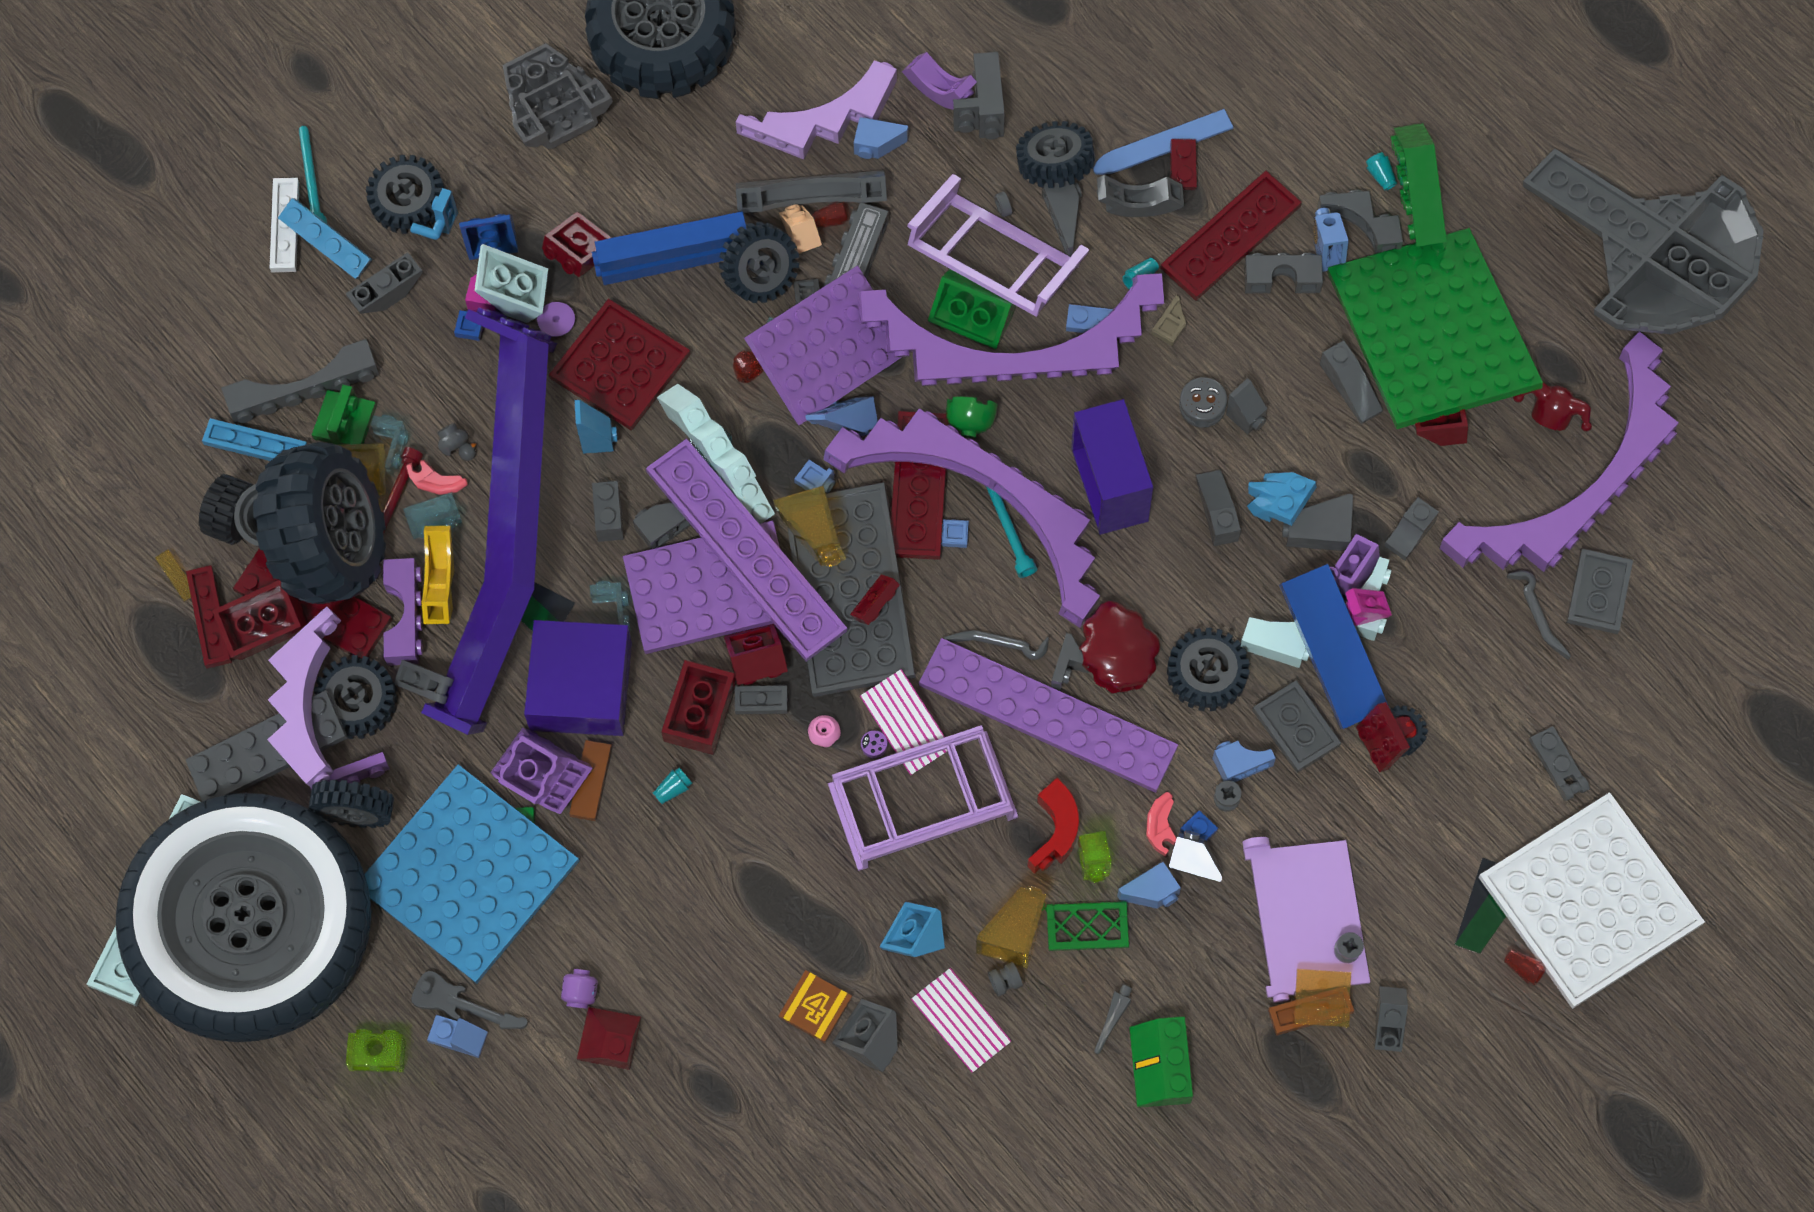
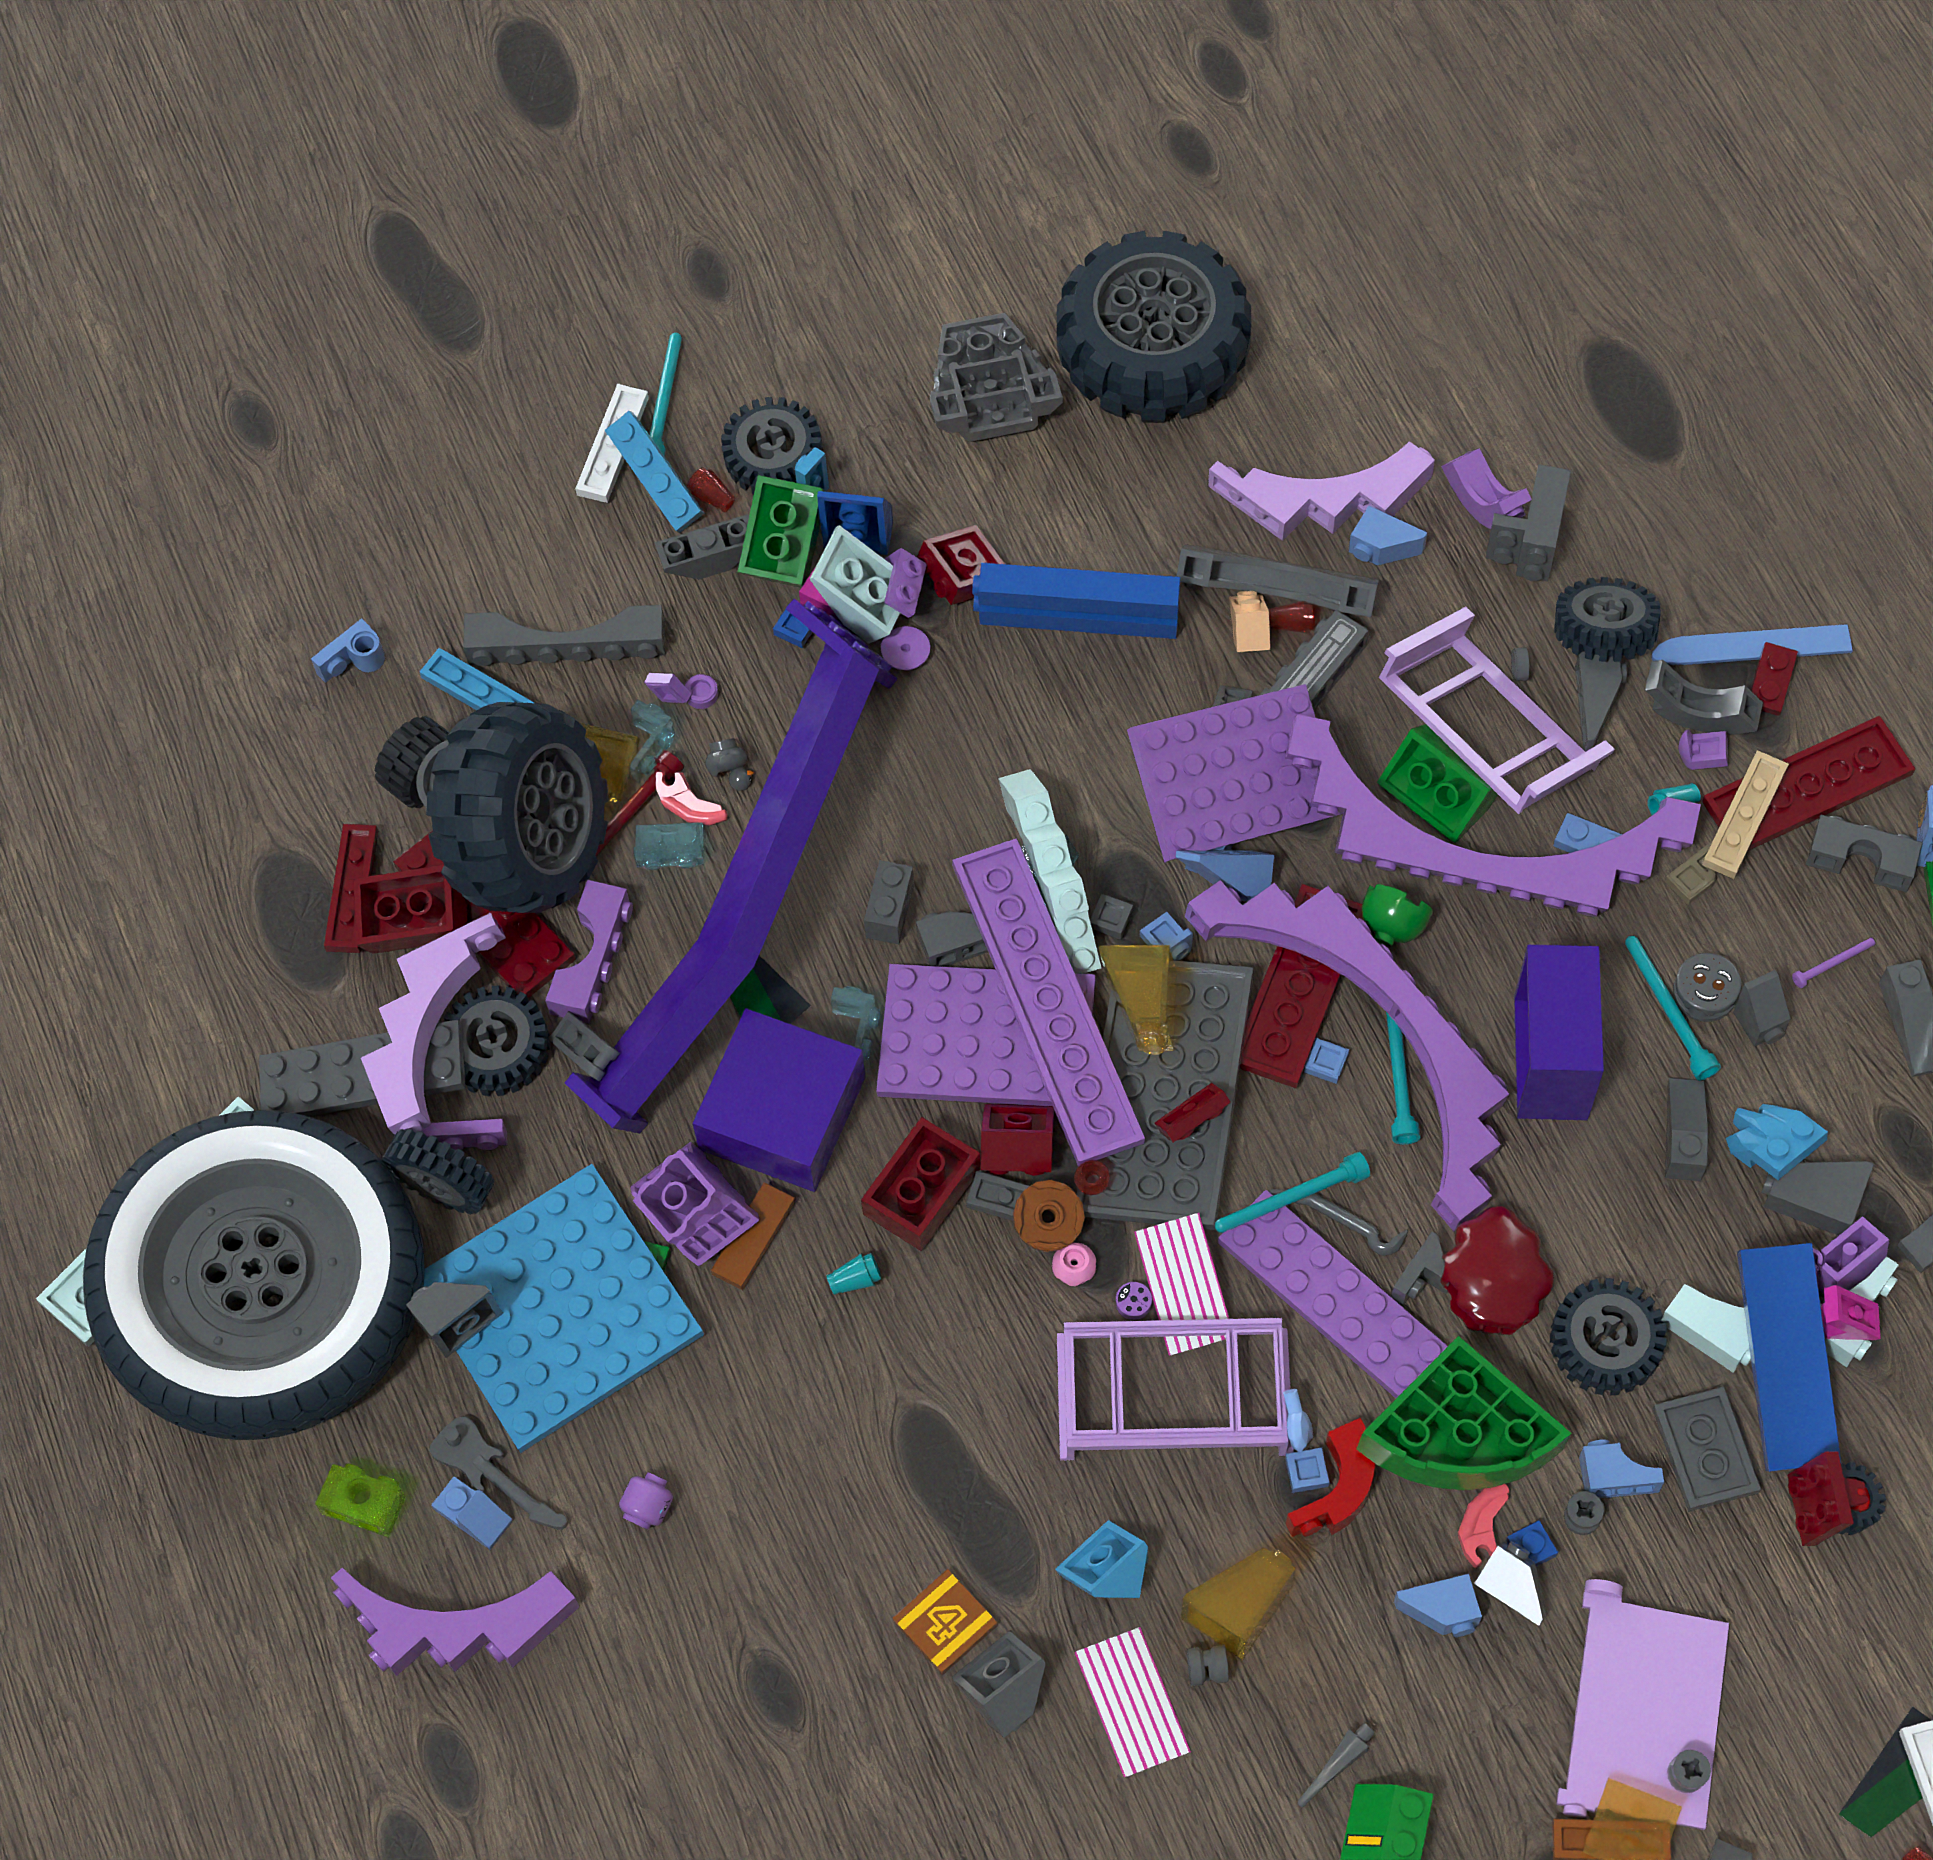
camera: 20 degrees right, 5 degrees down
(140, 439) = (346, 649): none -> medium blue plate
(174, 574) = (329, 823): clear yellow piece -> none
(344, 418) = (602, 693): green bracket -> none
(371, 240) = (710, 489): none -> clear red cone
(392, 399) = (667, 688): none -> medium lavender tile
(398, 901) = (453, 1313): none -> dark grey slope
(416, 394) = (703, 691): none -> medium lavender tile
(437, 258) = (781, 532): none -> green slope
(438, 575) = (652, 915): yellow arch -> none
(440, 1133) = (455, 1636): none -> medium lavender arch
(541, 270) = (904, 582): none -> medium lavender bracket
(594, 429) = (904, 793): dark azure slope -> none
(609, 1038) = (664, 1578): dark red slope -> none
(619, 364) = (966, 725): dark red plate -> none
(746, 252) = (1167, 628): wheel -> none
(746, 367) = (1123, 774): clear red cone -> none
(770, 474) = (1111, 916): none -> dark grey plate
(809, 698) = (1066, 1209): none -> dark orange plate
(815, 660) = (1092, 1168): none -> clear red plate
(997, 605) = (1353, 1169): none -> teal piece
(1015, 794) = (1298, 1423): none -> light blue rock
(1031, 825) = (1307, 1470): none -> medium blue plate
(1075, 944) = (1317, 1648): green window -> none
(1094, 856) = (1377, 1538): clear neon green brick -> none
(1129, 762) = (1463, 1427): none -> green brick
(1151, 230) = (1704, 749): none -> medium lavender plate
(1194, 270) = (1745, 814): none -> tan plate
(1216, 457) = (1702, 1062): none -> teal piece
(1265, 377) = (1800, 979): none -> medium lavender piece

